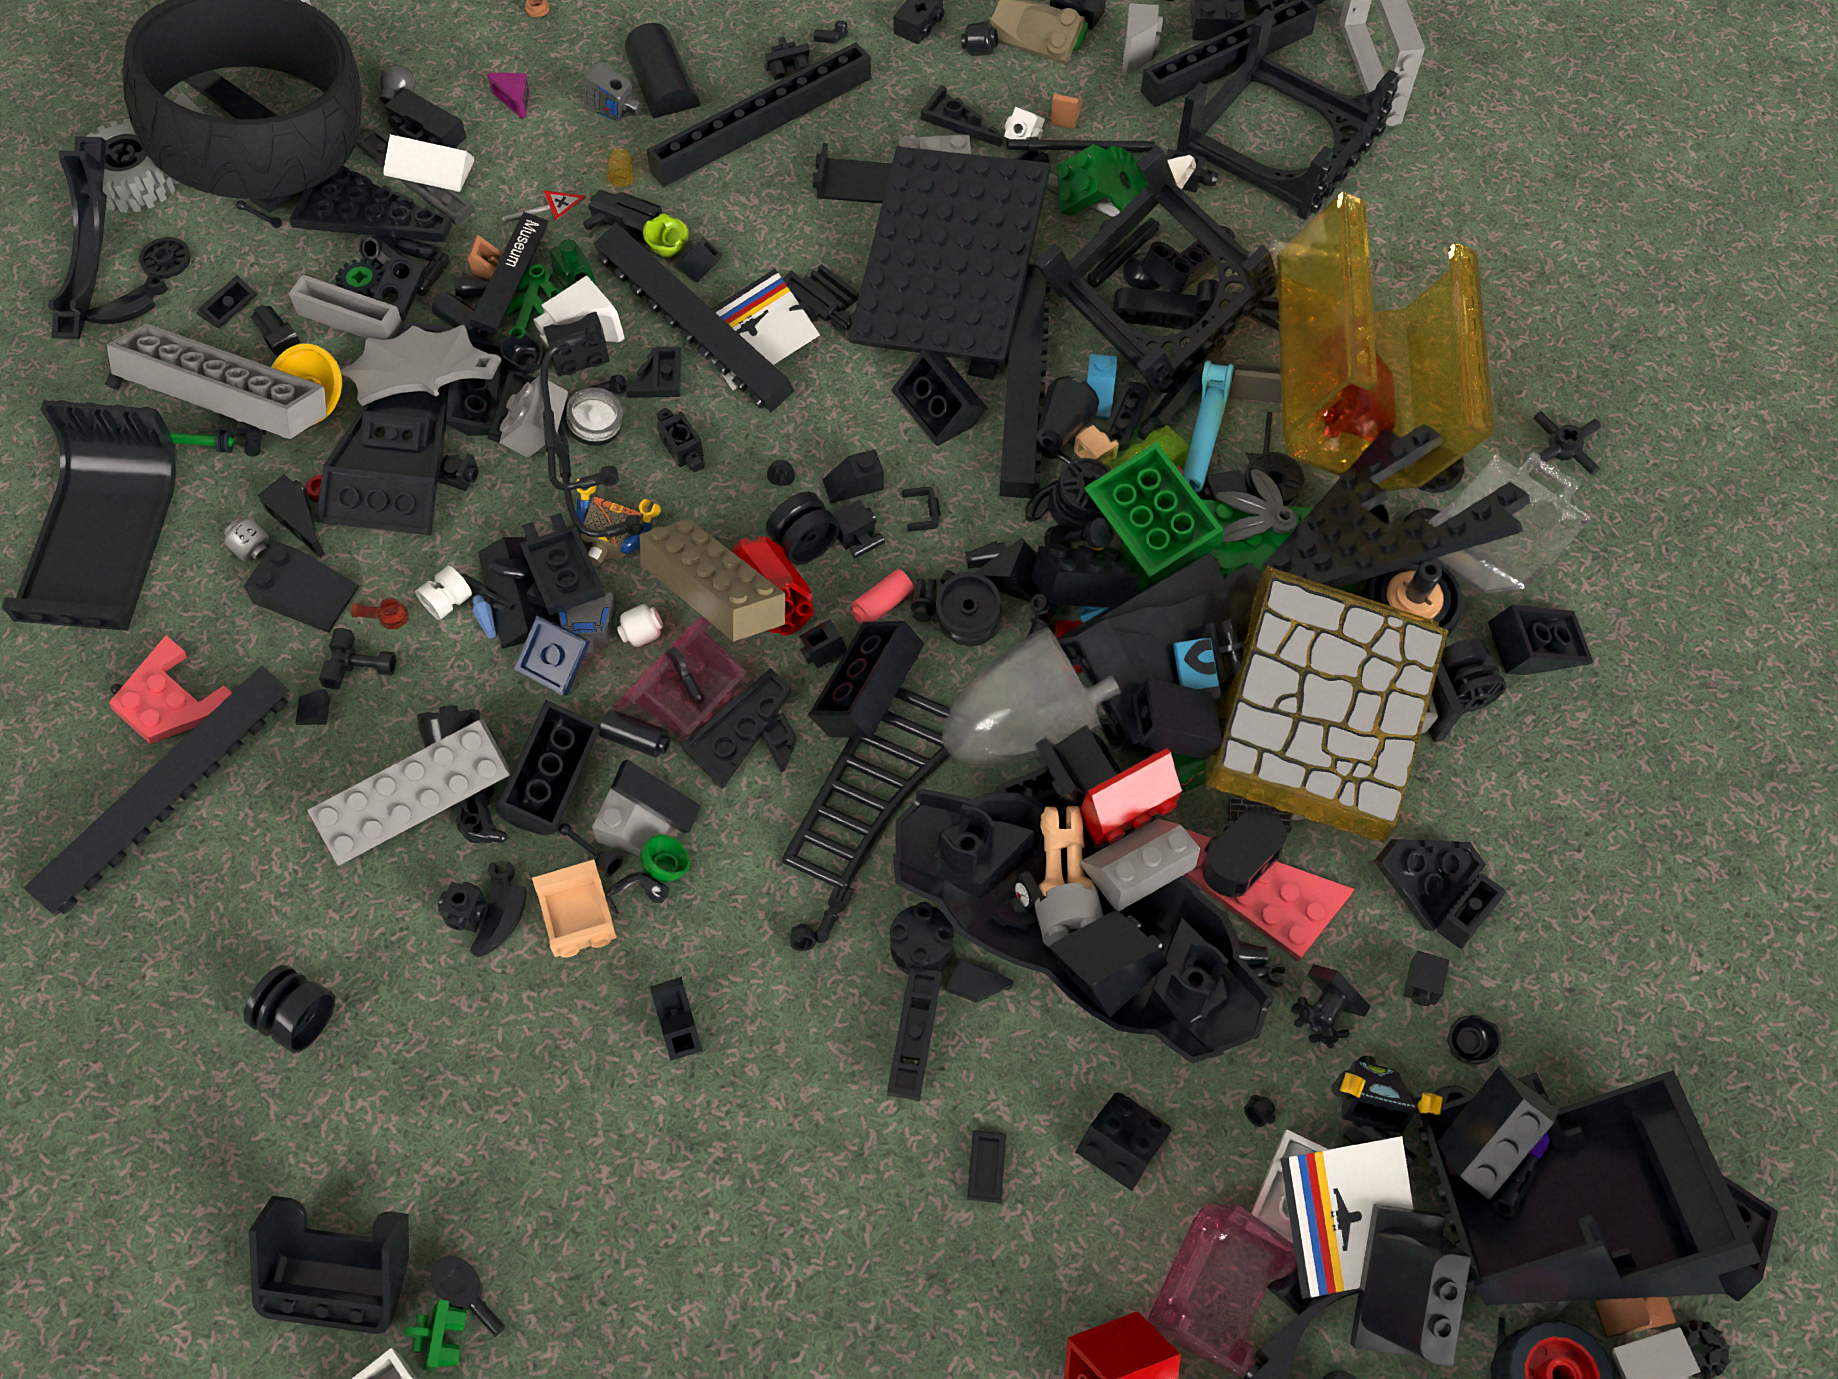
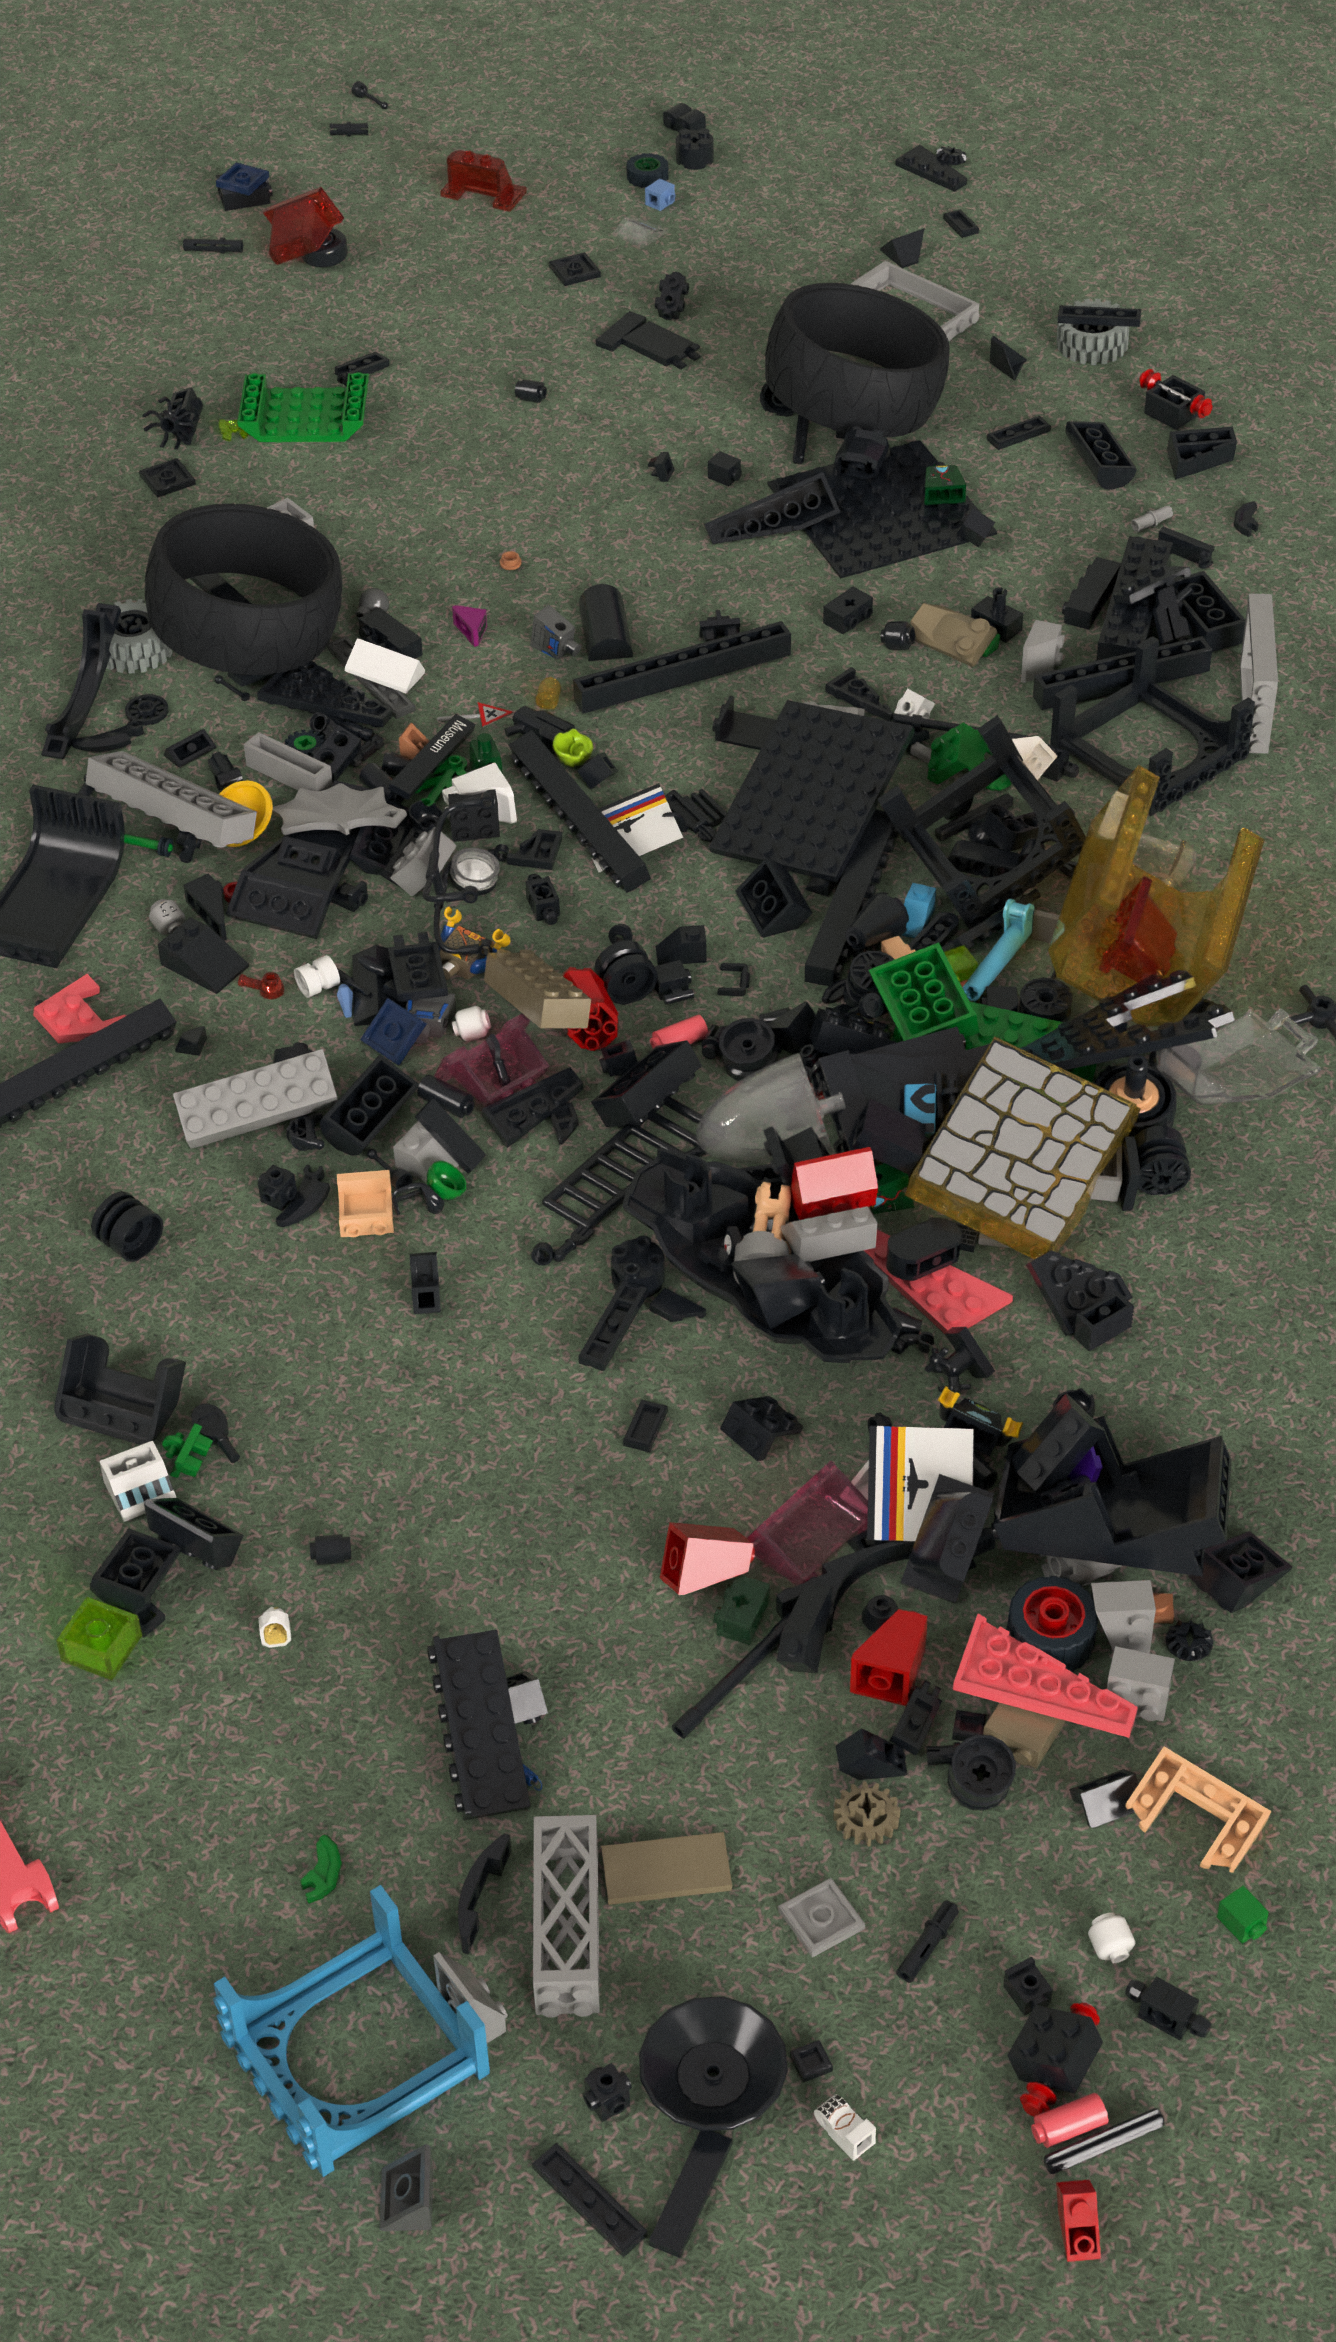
camera: 15 degrees right, 15 degrees down
(345, 658) = (226, 1010): black bar -> none
(832, 36) = (766, 617): black arm -> none
(1065, 111) = (957, 700): nougat slope -> none
(1267, 512) = (1025, 1018): dark grey plant -> none
(1426, 978) = (1050, 1362): black brick -> none
(1538, 640) = (1239, 1149): black slope -> none

